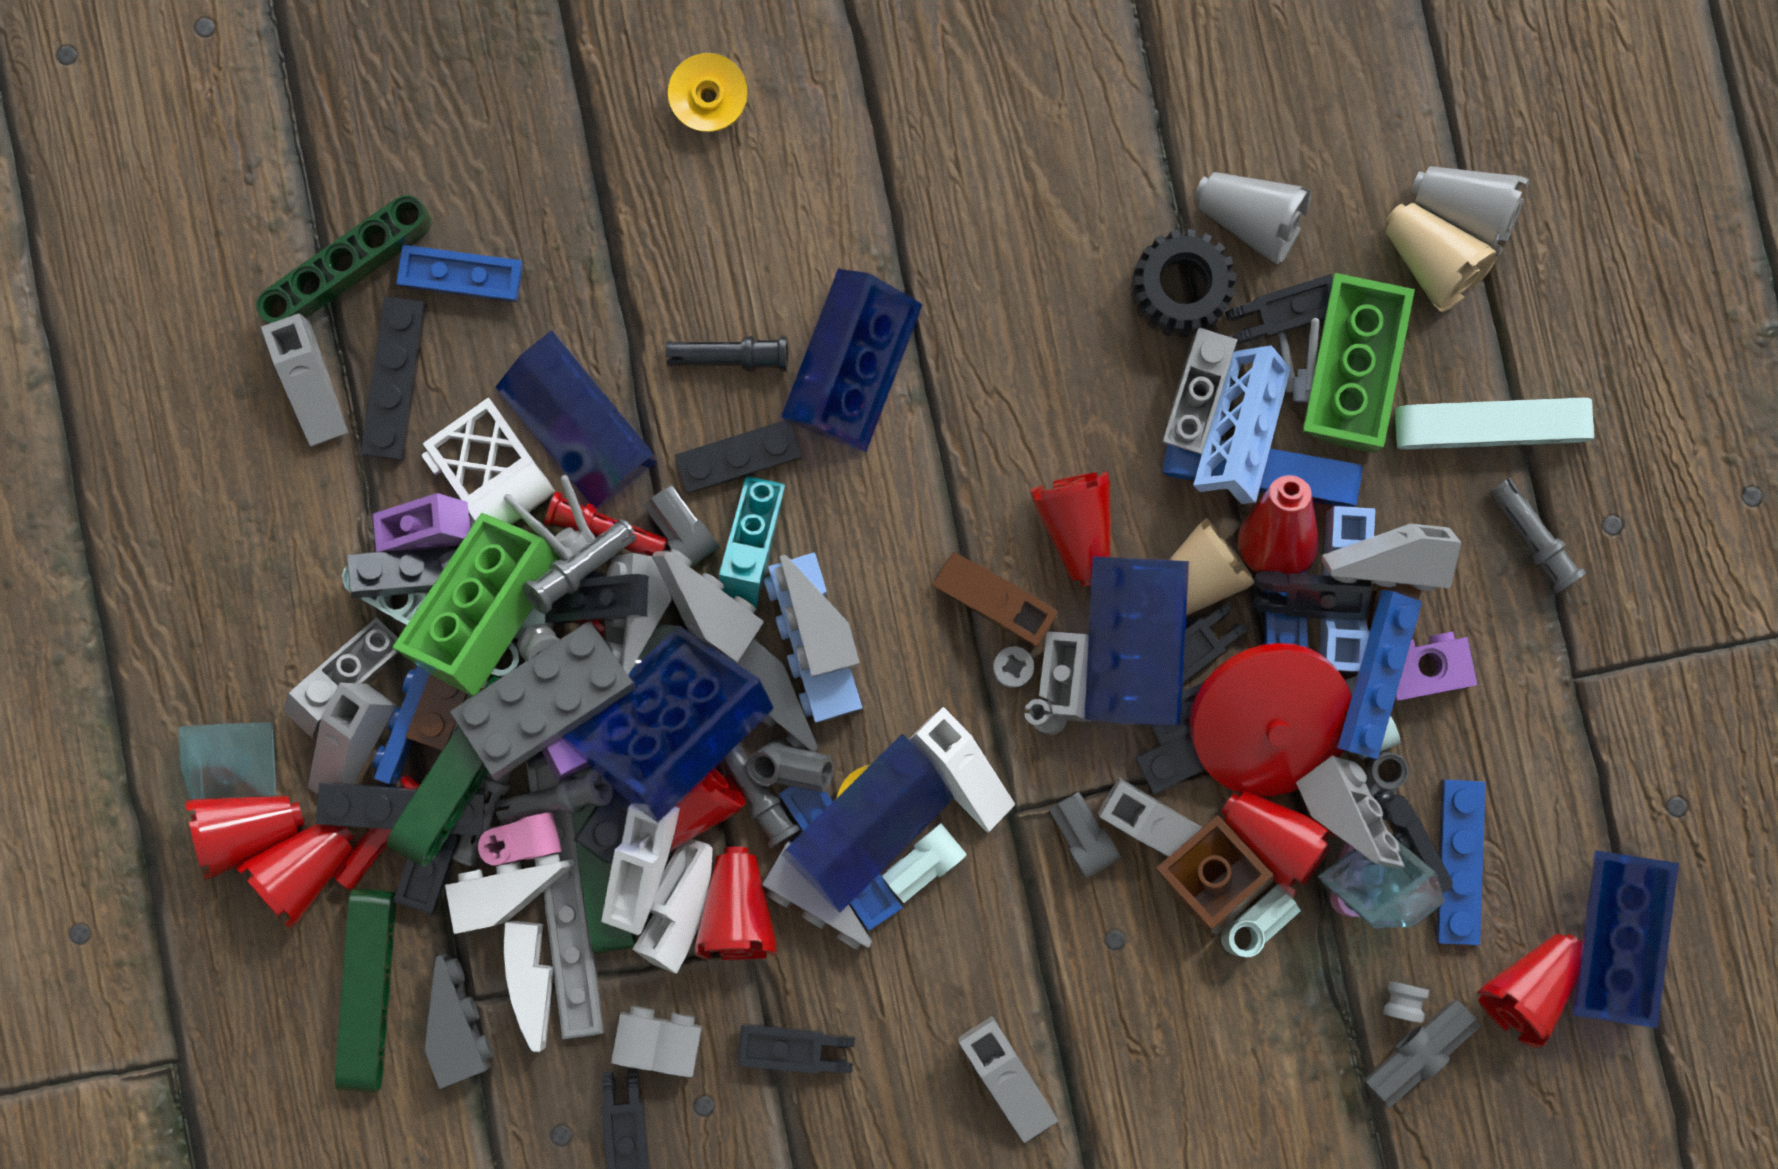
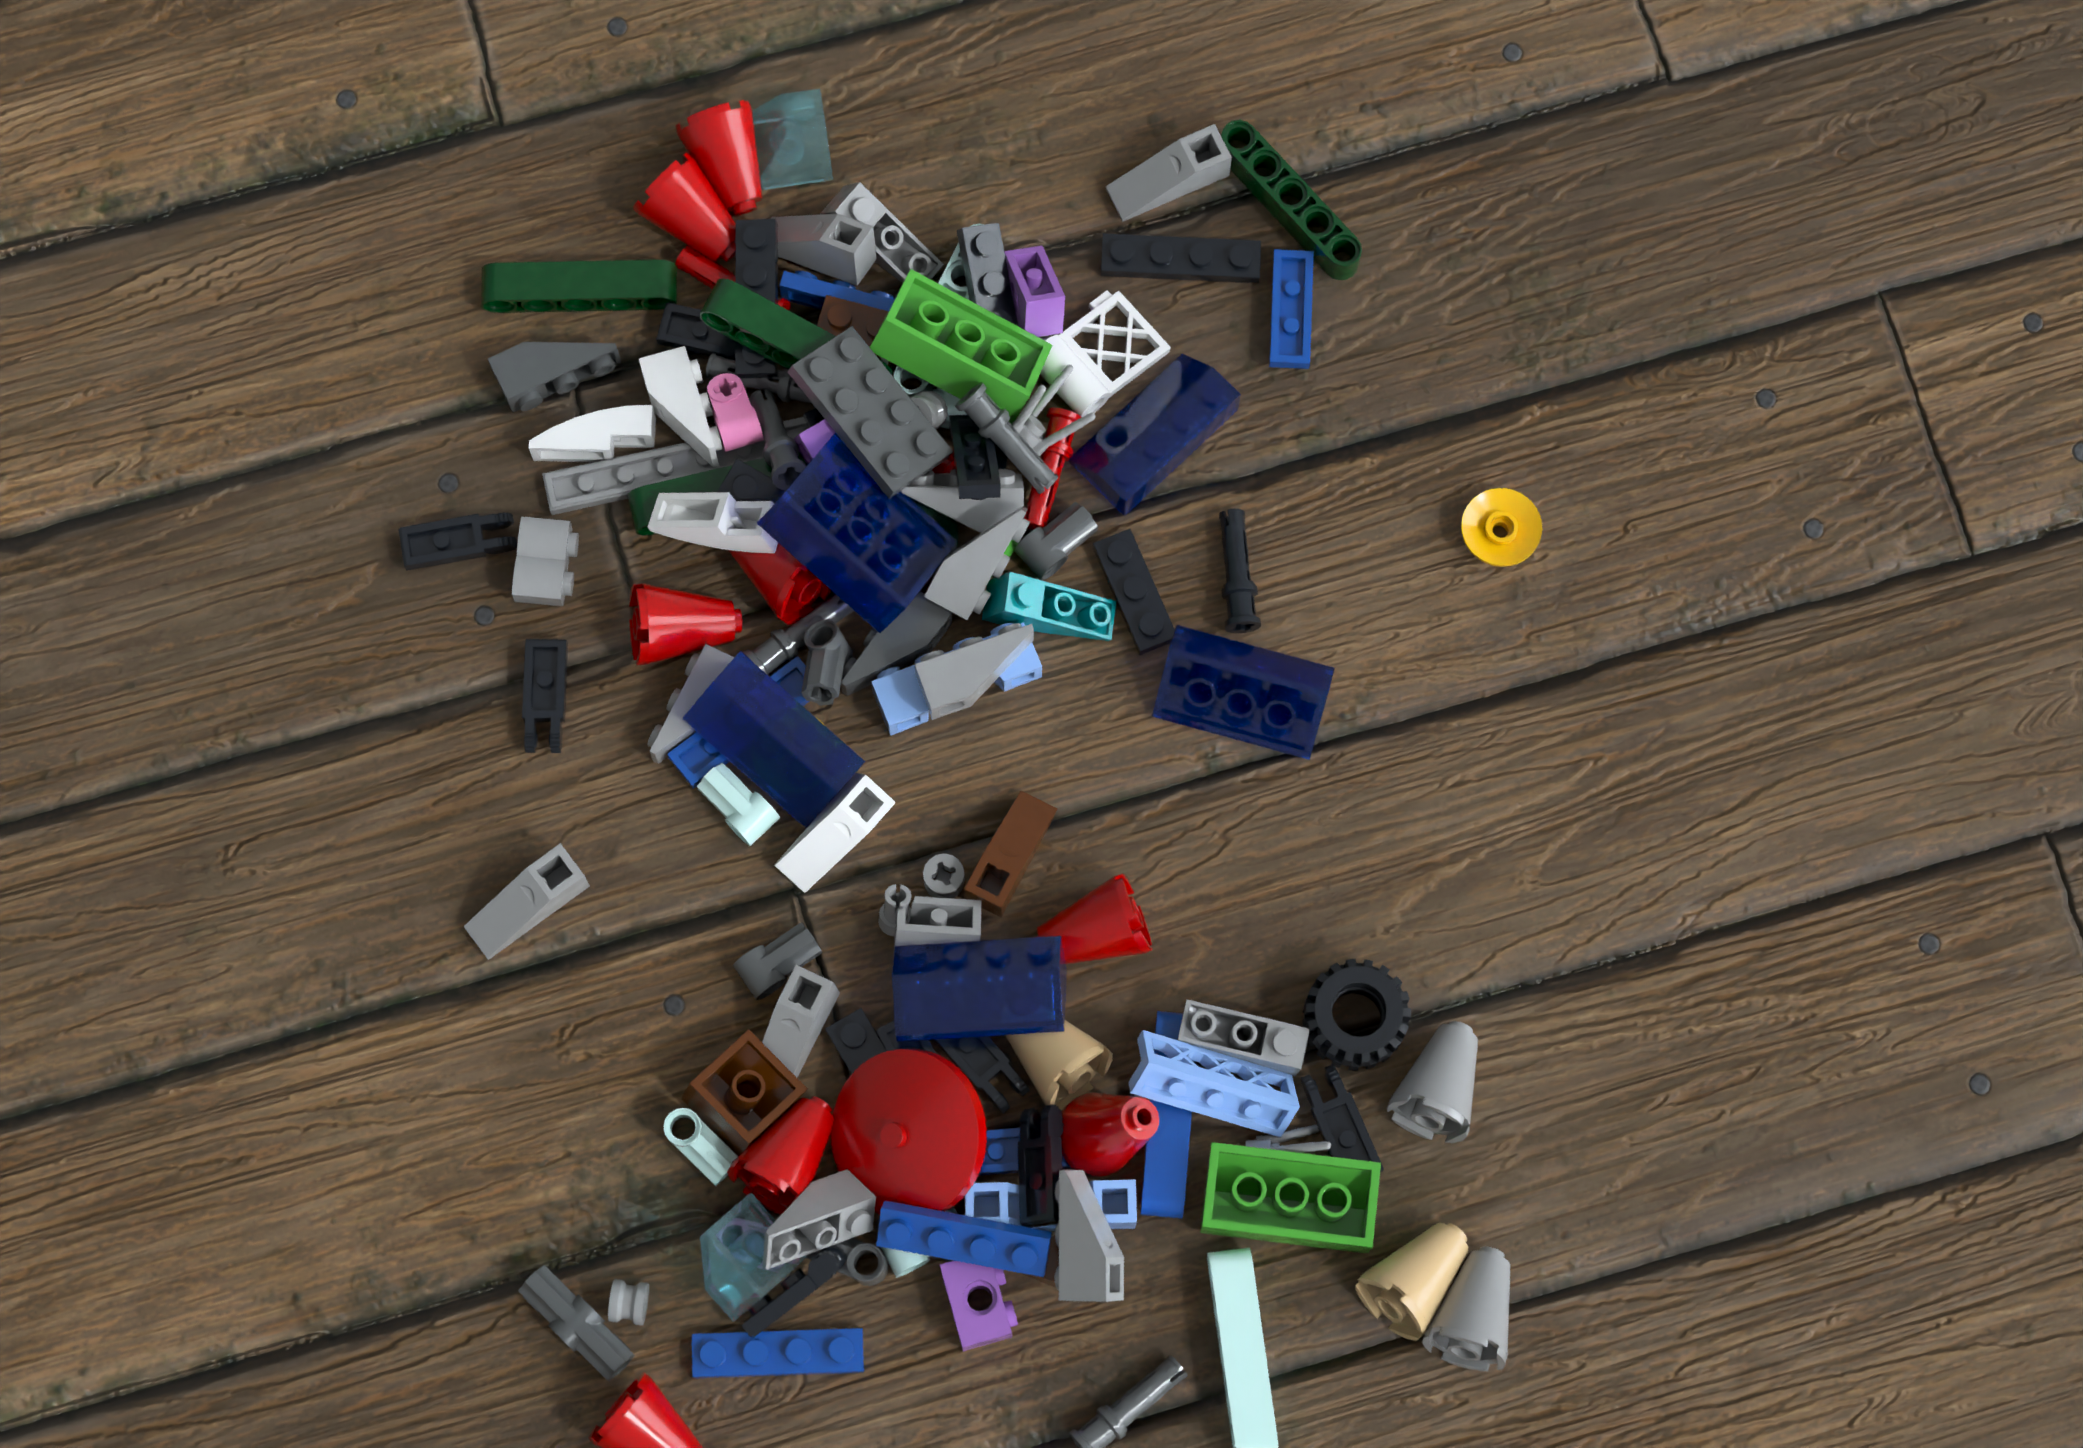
camera: 80 degrees right, 10 degrees down
(677, 907) = (678, 567): white slope -> none

